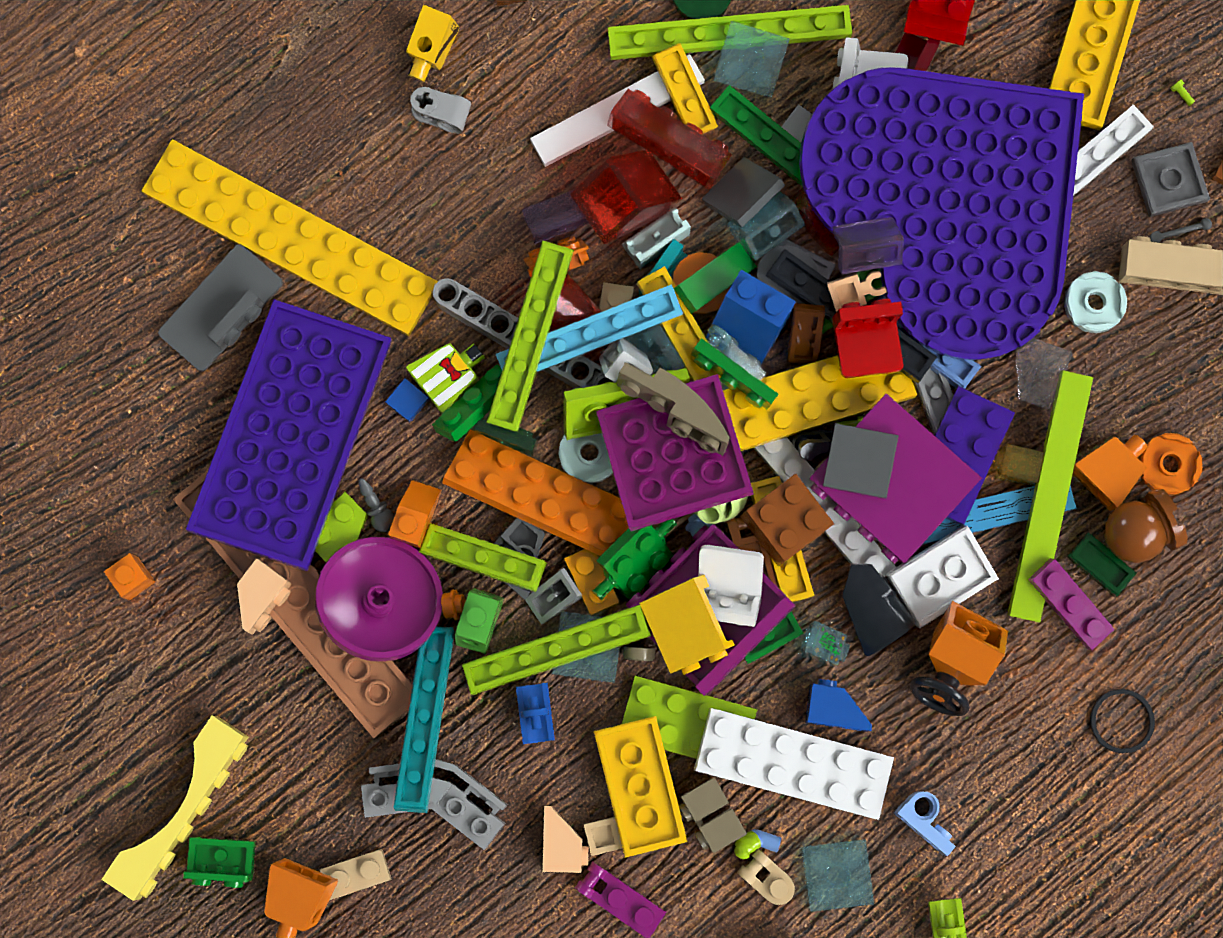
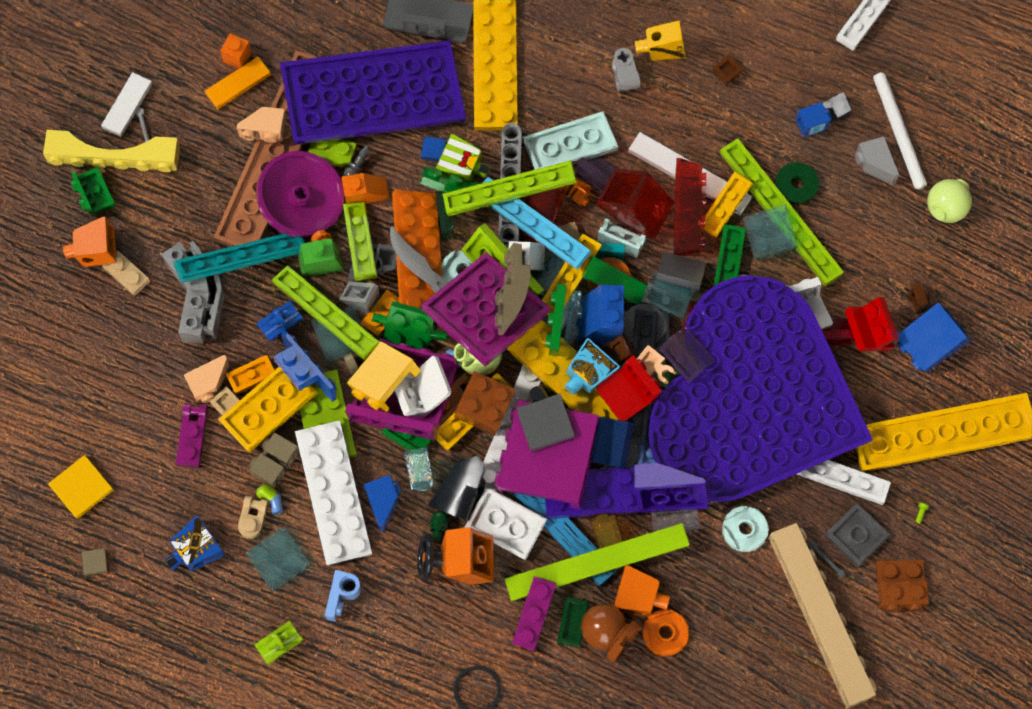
camera: 60 degrees right, 10 degrees down
(119, 755) = (126, 104): none -> white tile
(140, 744) = (140, 113): none -> light grey hinge
(172, 597) = (237, 83): none -> light orange tile
(496, 230) = (580, 138): none -> light aqua tile
(561, 502) = (416, 262): none -> light grey sword
(583, 785) = (250, 375): none -> light orange plate
(616, 722) = (300, 368): none -> blue bracket
(814, 370) = (589, 368): none -> torso
(900, 658) = (439, 525): none -> dark green cylinder
(920, 394) = (612, 442): none -> dark blue panel
(1011, 365) = (668, 489): none -> dark purple slope

